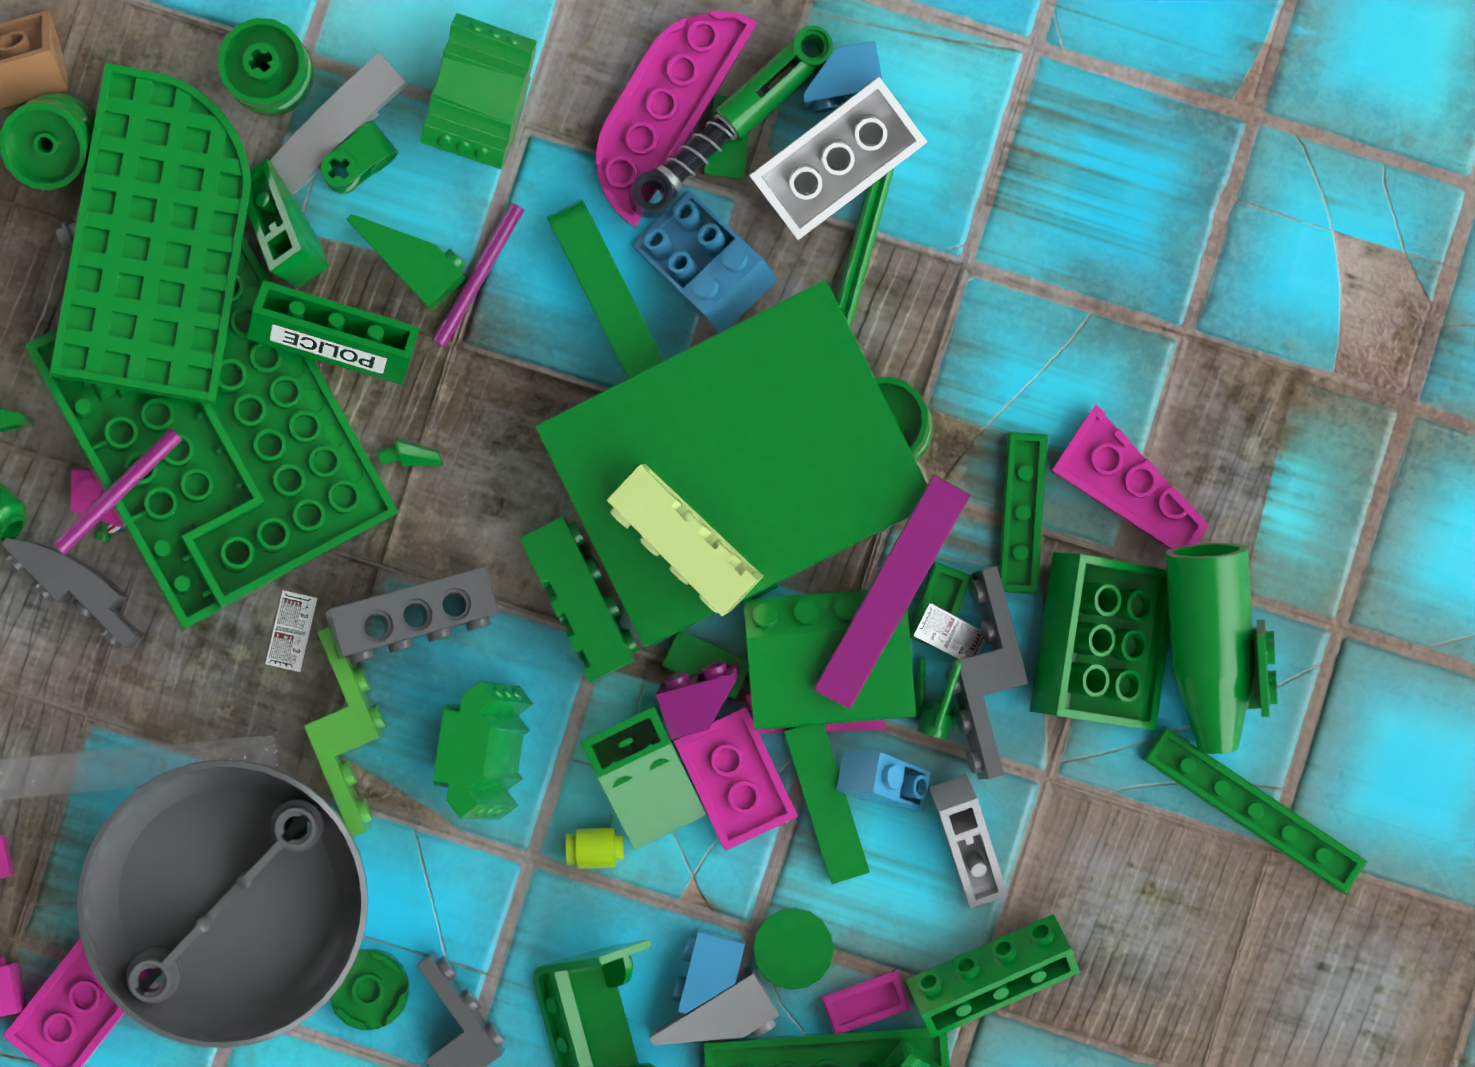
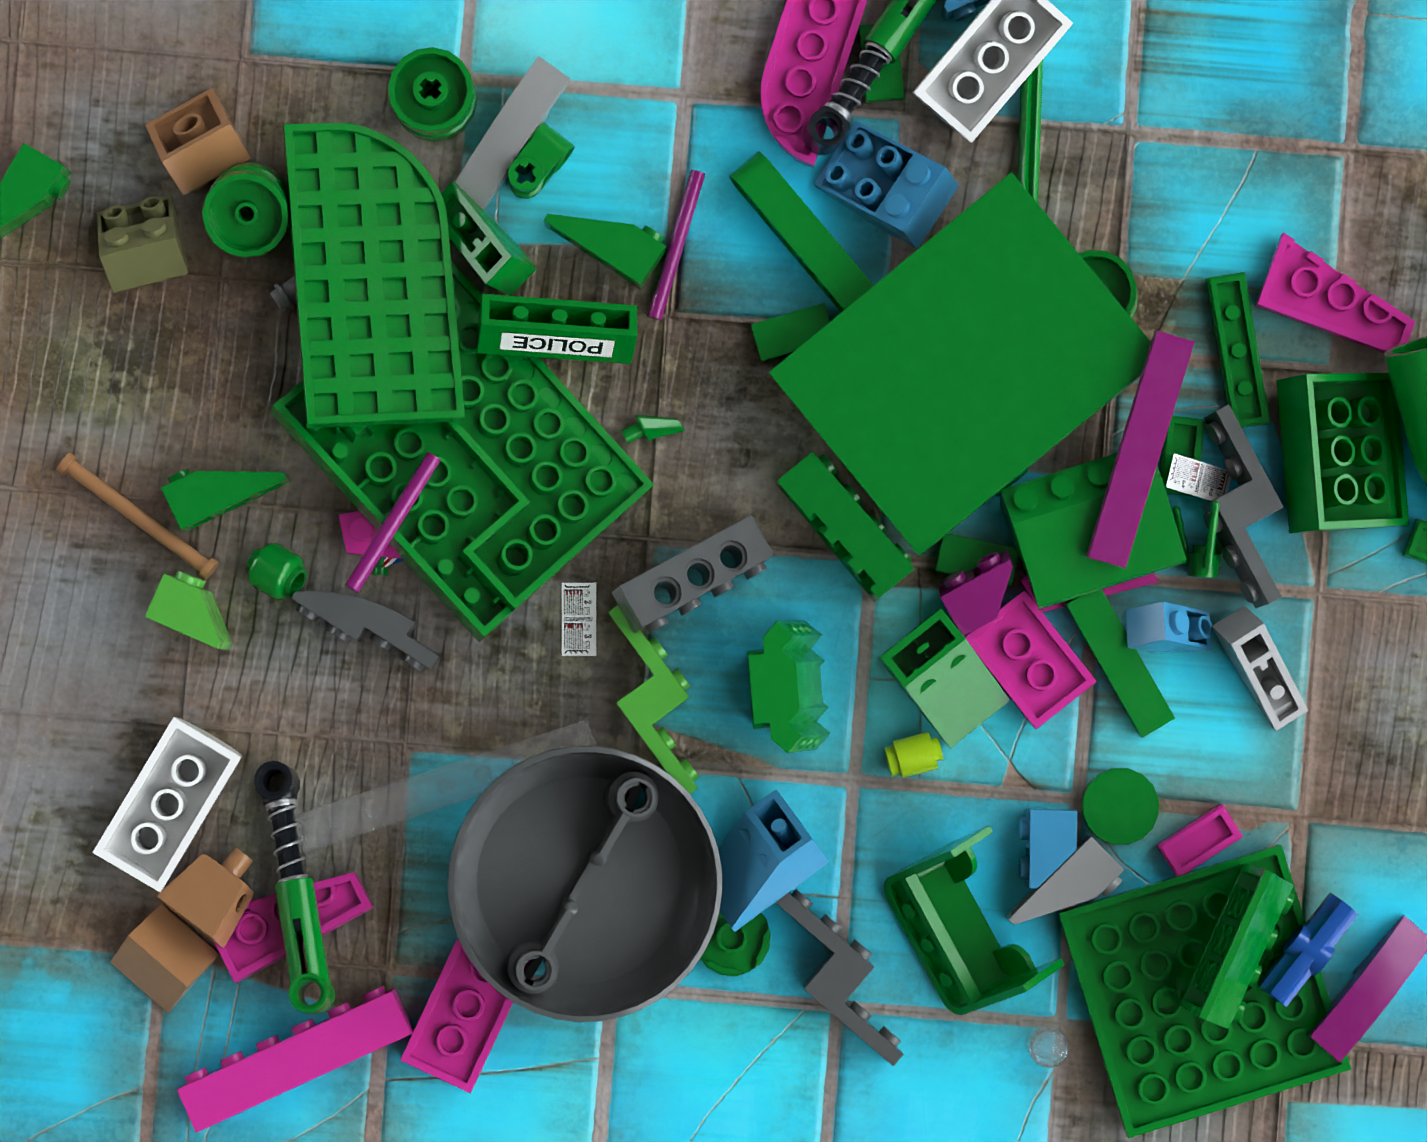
camera: 25 degrees left, 0 degrees up
(416, 919) = (764, 859): none -> dark azure slope
(479, 91) = (640, 71): green slope -> none
(565, 389) = (788, 332): none -> green tile
(684, 540) = (936, 444): yellowish green wedge -> none
(993, 976) = (1314, 787): green brick -> none

